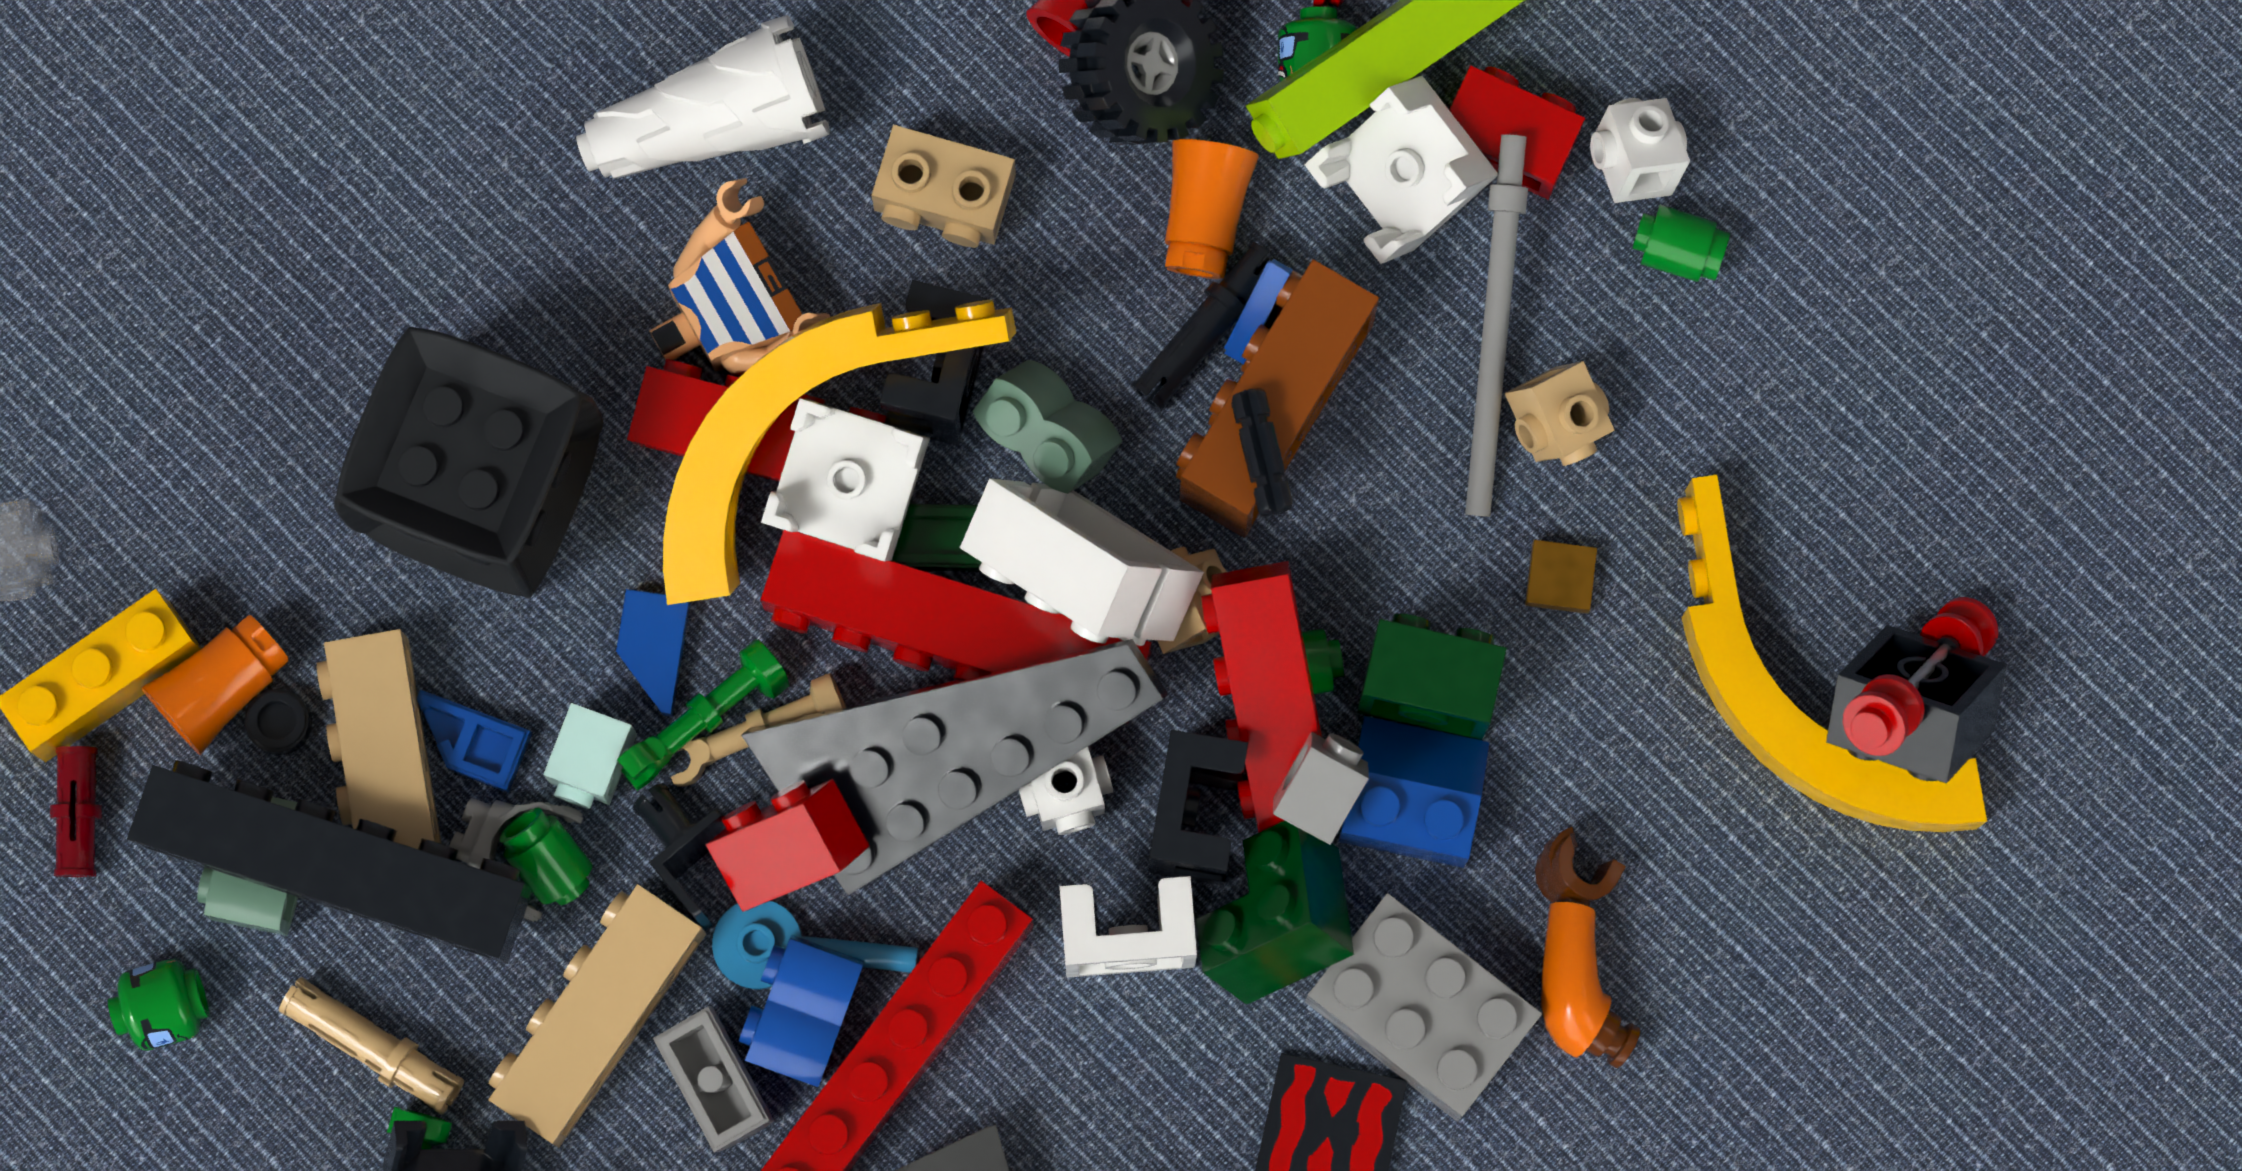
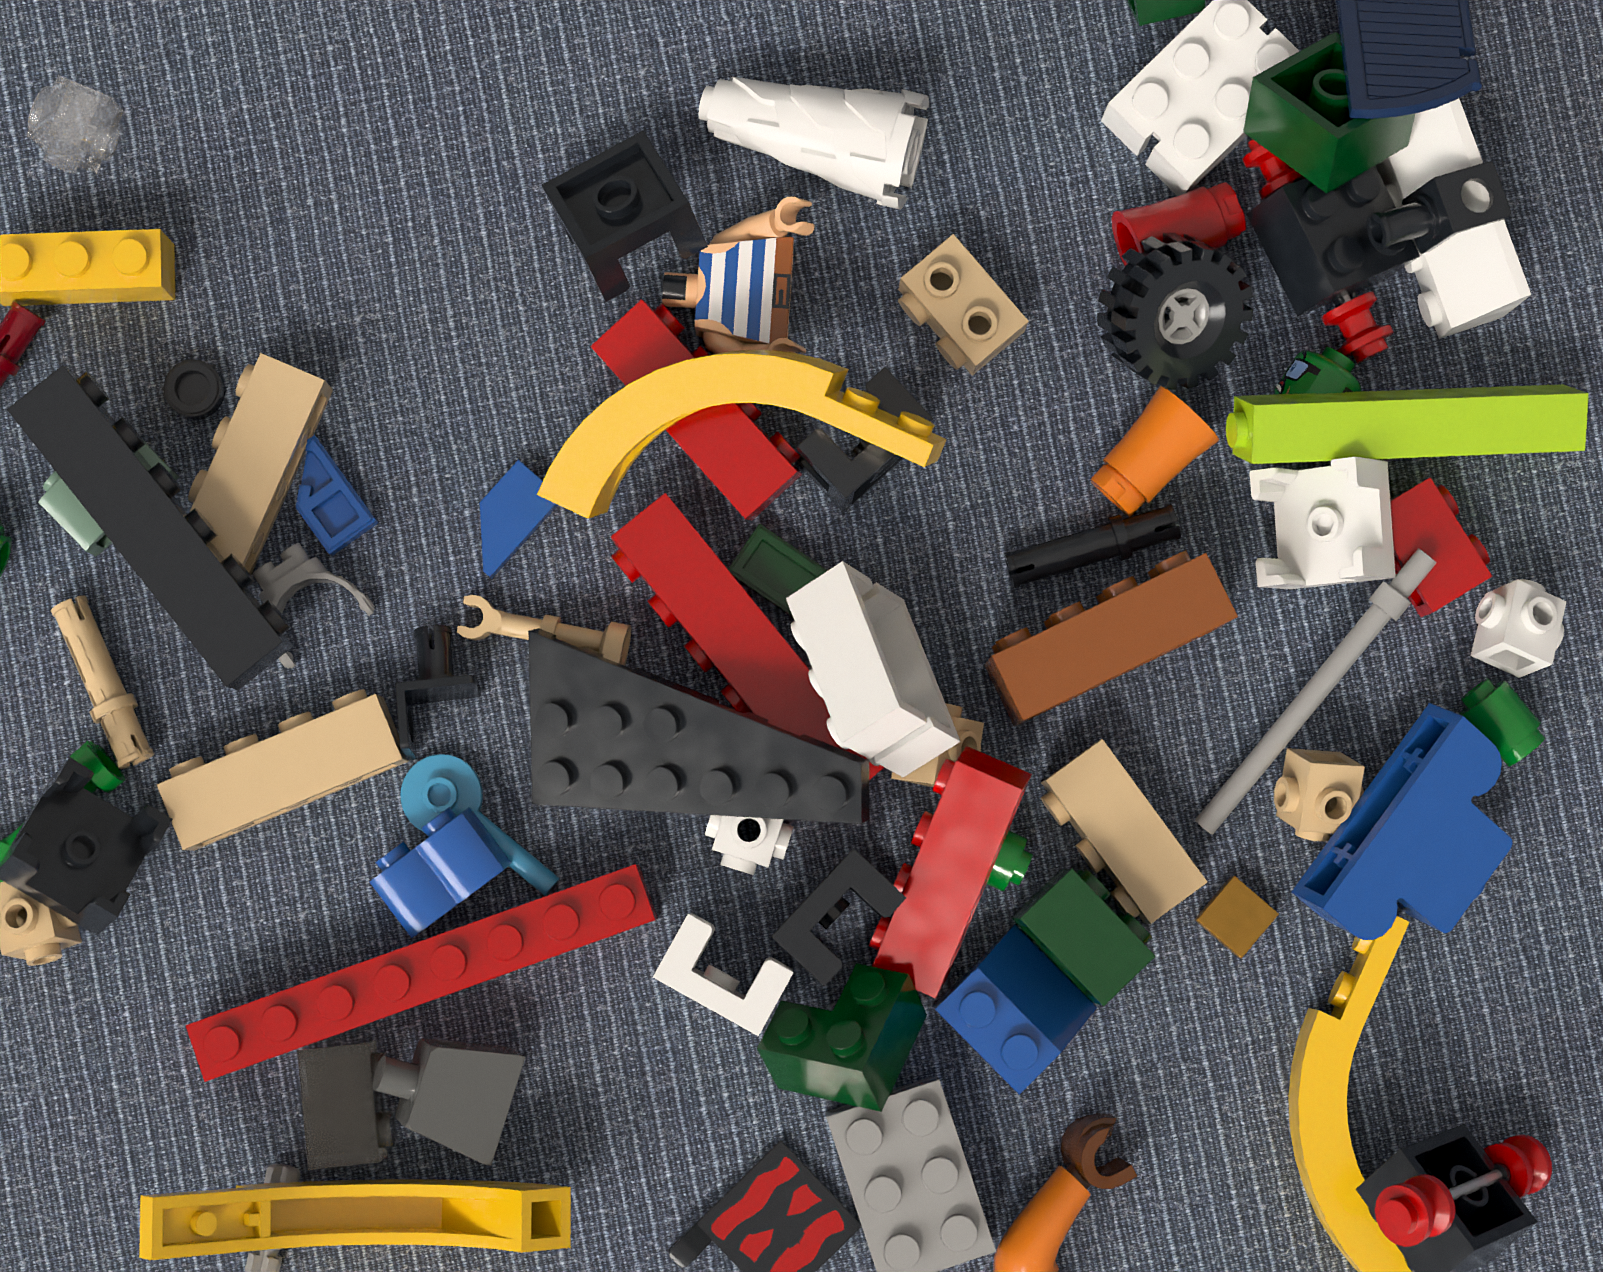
camera: 30 degrees right, 5 degrees up
(216, 682) = (163, 329): orange plant -> none
(469, 461) = (455, 285): black piece -> none
(546, 857) = (322, 626): green brick -> none
(570, 294) = (620, 205): none -> black panel
(587, 755) = (405, 570): light aqua brick -> none
(713, 1080) = (338, 878): light grey brick -> none
(758, 670) = (577, 587): green piece -> none
(786, 844) = (507, 738): brick -> none
(846, 480) = (734, 488): white panel -> none
(1038, 416) = (917, 542): sand green brick -> none
(1259, 308) = (1139, 561): blue tile -> none
(1261, 452) = (1066, 679): black axle -> none
(1322, 786) = (941, 968): light grey brick -> none
(1404, 566) = (1121, 833): none -> tan brick
(1668, 394) = (1413, 835): none -> blue brick

